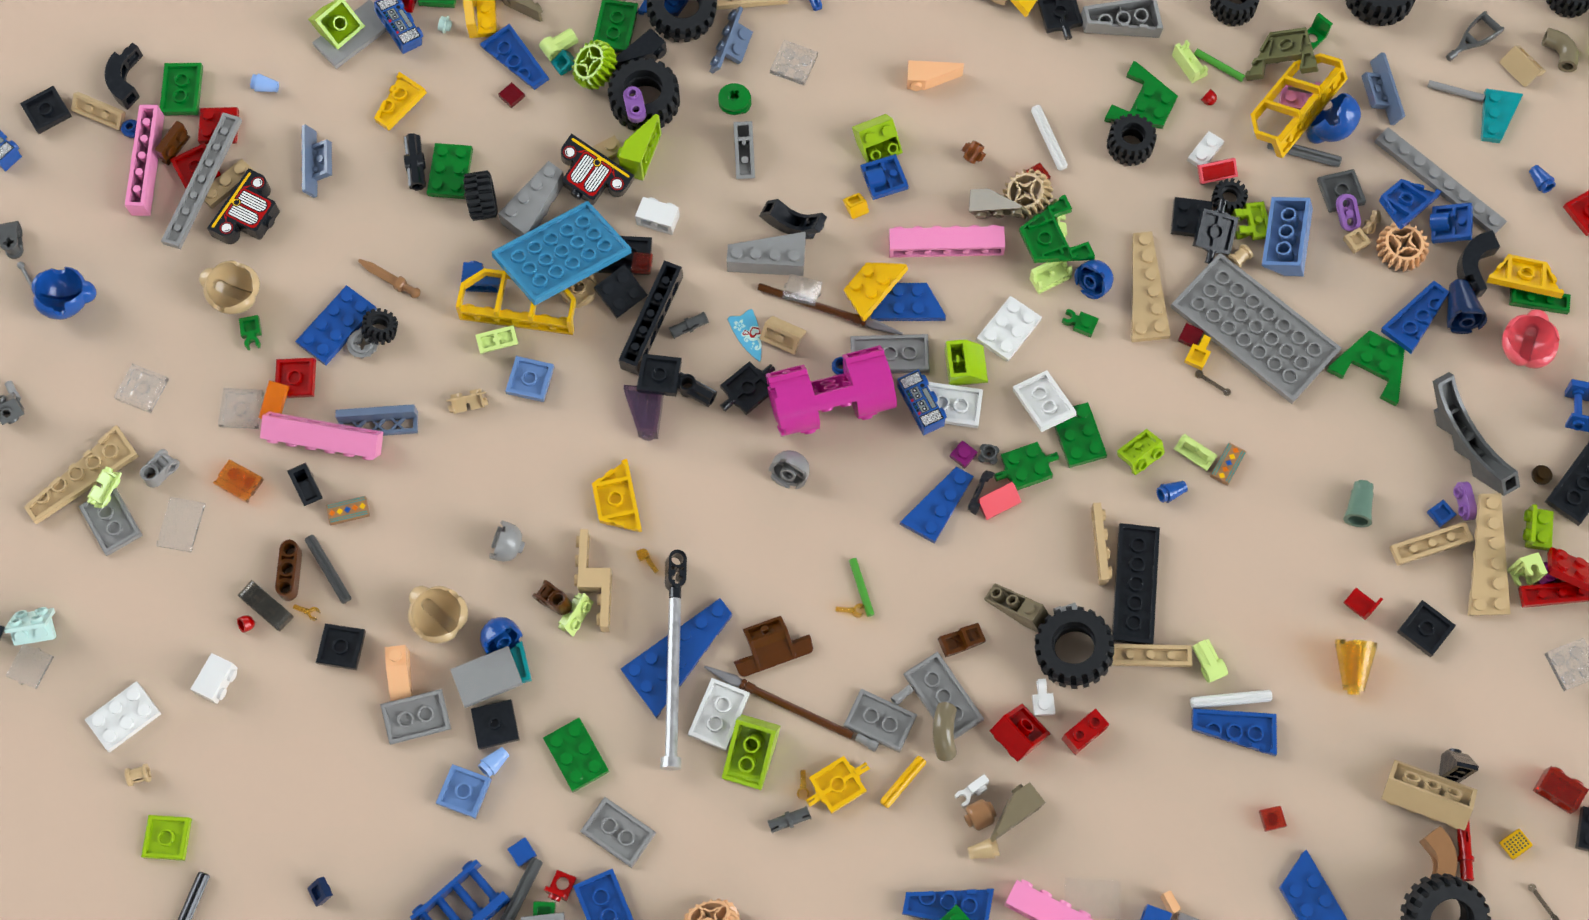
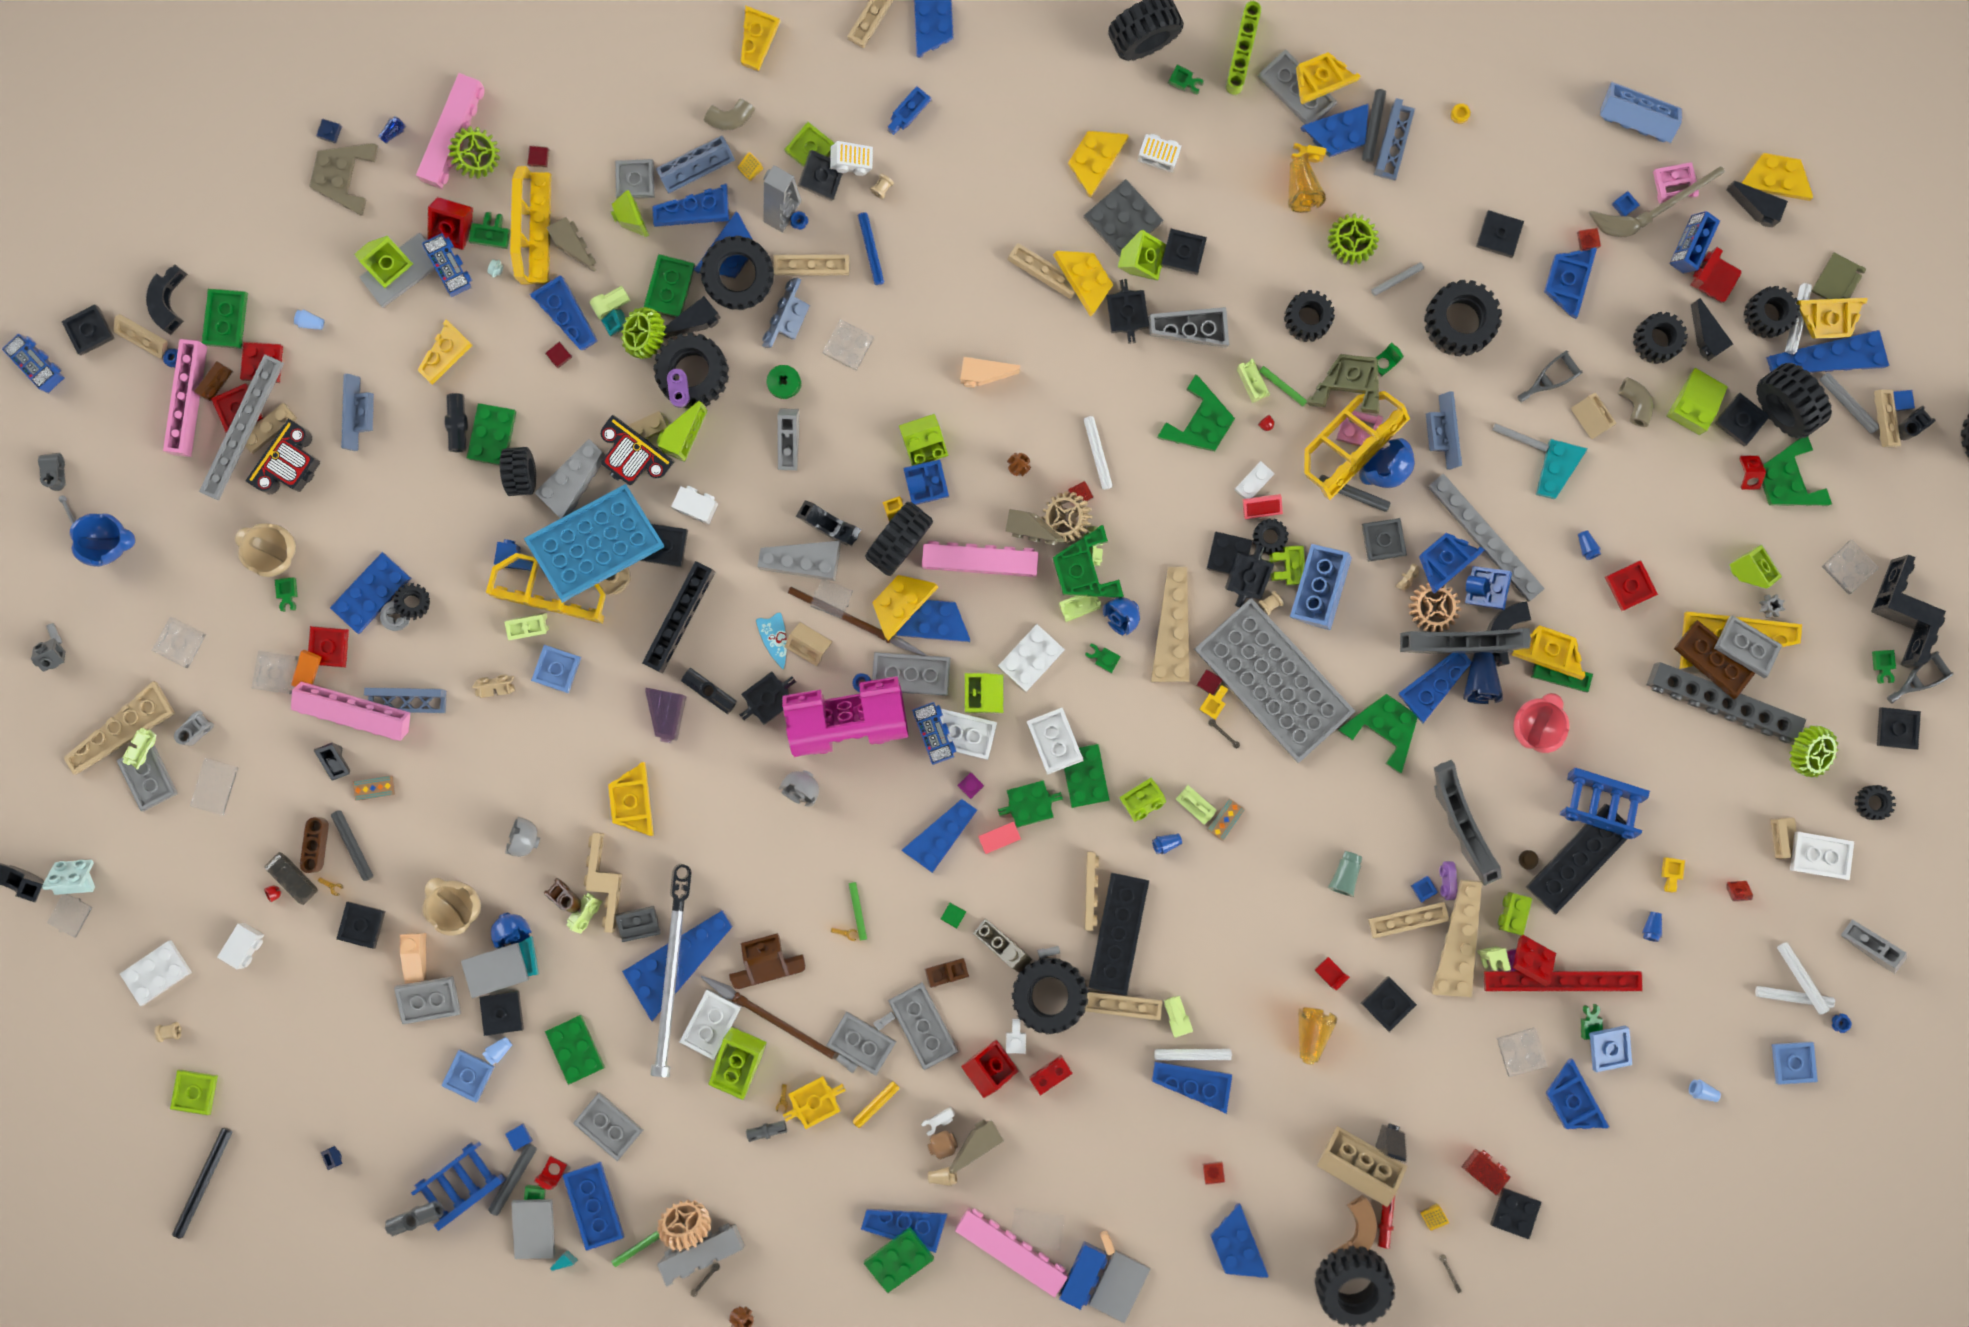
camera: 10 degrees right, 15 degrees up
(238, 481) = (269, 749): clear orange plate -> none
(398, 283) = (434, 554): medium nougat sword -> none
(620, 291) = (651, 584): black plate -> none
(633, 619) = (638, 923): none -> dark grey plate
(642, 263) = (674, 557): clear red plate -> none
(643, 554) = (654, 860): clear yellow hand -> none
(659, 375) = (680, 683): black plate -> none
(689, 325) = (716, 626): dark grey pin -> none
(865, 220) = (898, 538): none -> black tyre
(944, 731) = (917, 1063): dark tan cylinder -> none
(961, 582) = (953, 915): none -> green tile
(974, 506) = (990, 811): black piece -> none
(988, 448) = (999, 784): dark grey plate -> none
(1135, 127) = (1191, 454): black tyre -> none
(1349, 211) = (1386, 565): medium lavender plate -> none
(1356, 240) = (1390, 595): tan plate -> none
(1441, 271) = (1465, 642): none -> dark grey arch

